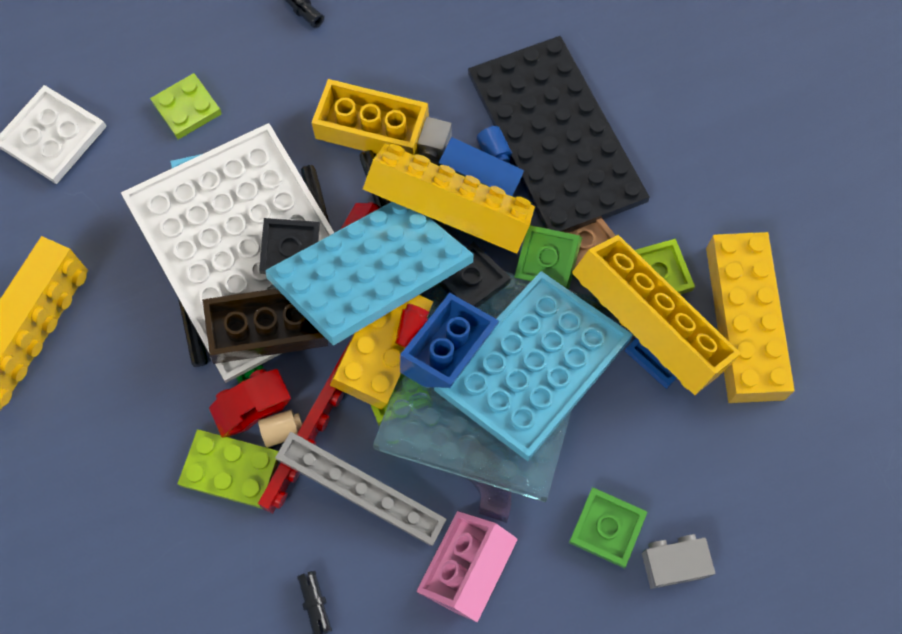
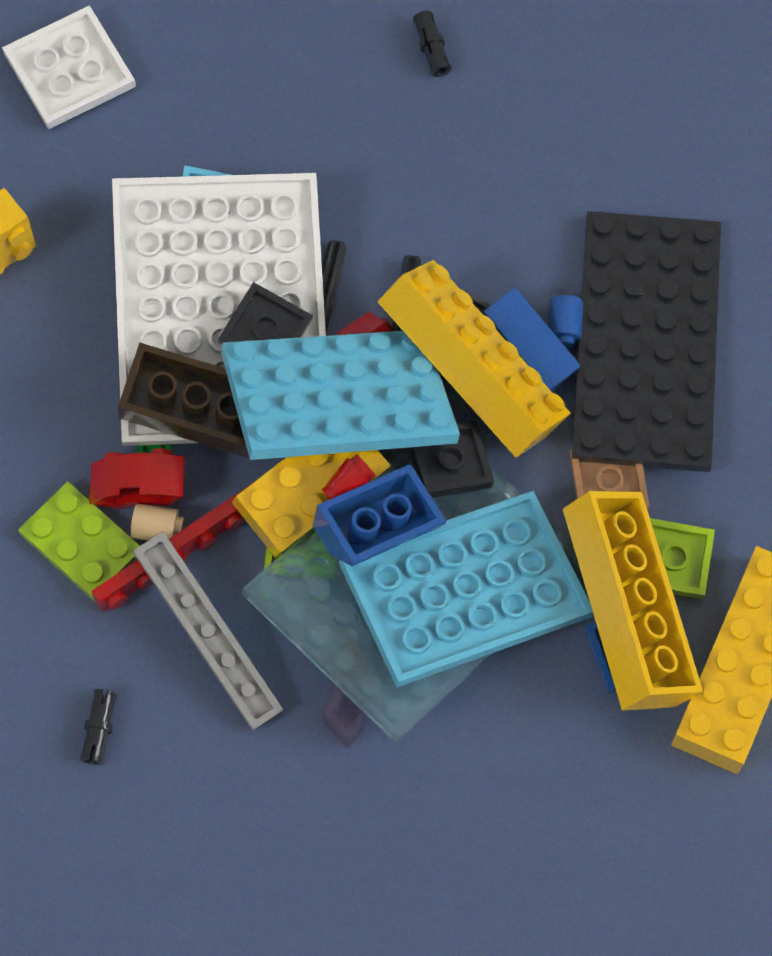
camera: 25 degrees right, 0 degrees up
(186, 106) = (237, 104): lime plate -> none
(194, 342) = (110, 388): black axle -> none
(368, 118) = (436, 221): yellow brick -> none
(434, 138) = (499, 277): light grey brick -> none
(467, 565) = (280, 769): bright pink slope -> none
(548, 252) = (555, 476): bright green plate -> none
(608, 527) = (454, 807): bright green plate -> none
(678, 561) = (508, 881): light grey brick -> none

